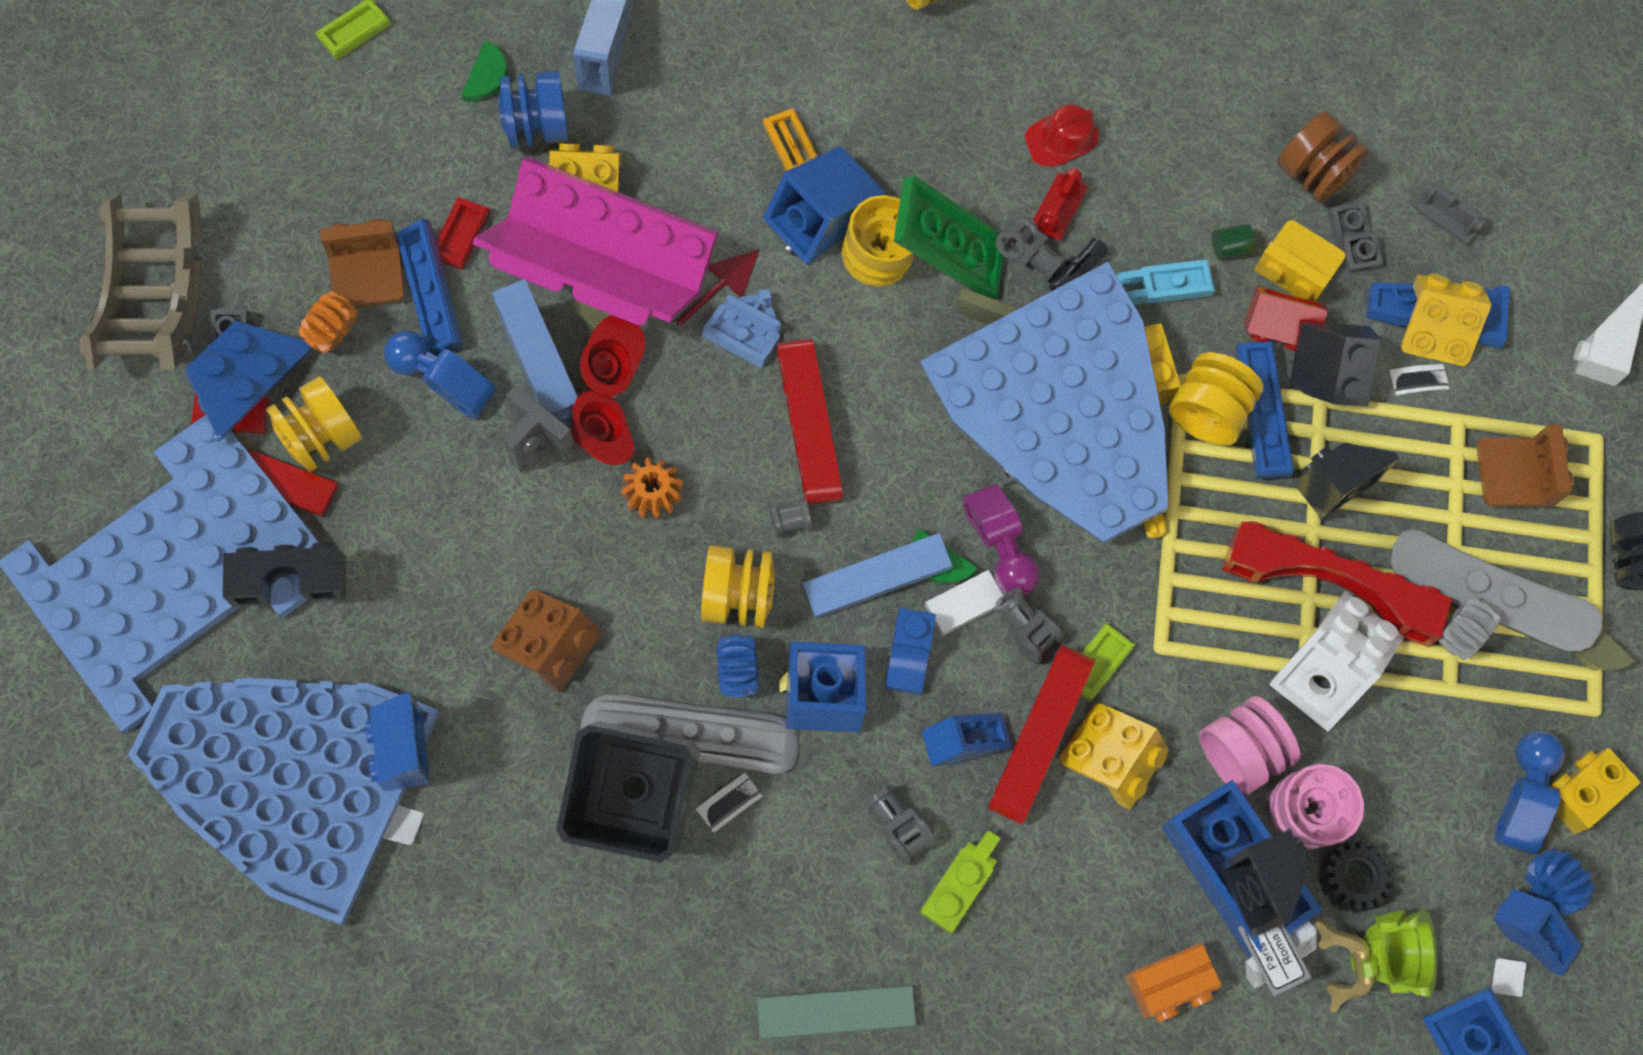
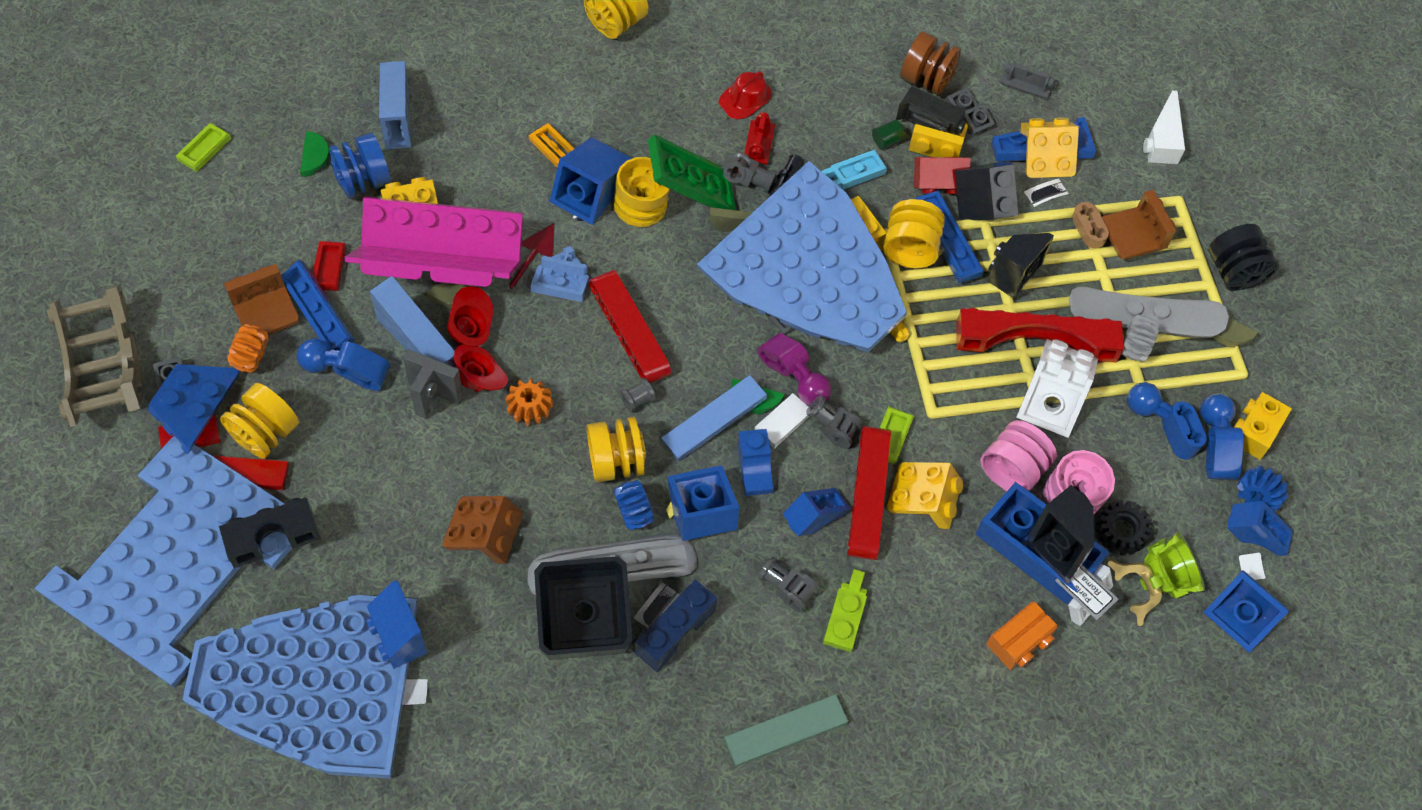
camera: 15 degrees left, 10 degrees down
(740, 837) = (669, 629): none -> dark blue arch
(1300, 229) = (931, 112): none -> pearl dark grey window
(1454, 445) = (1086, 226): none -> medium nougat beam
(1482, 754) = (1179, 421): none -> blue beam

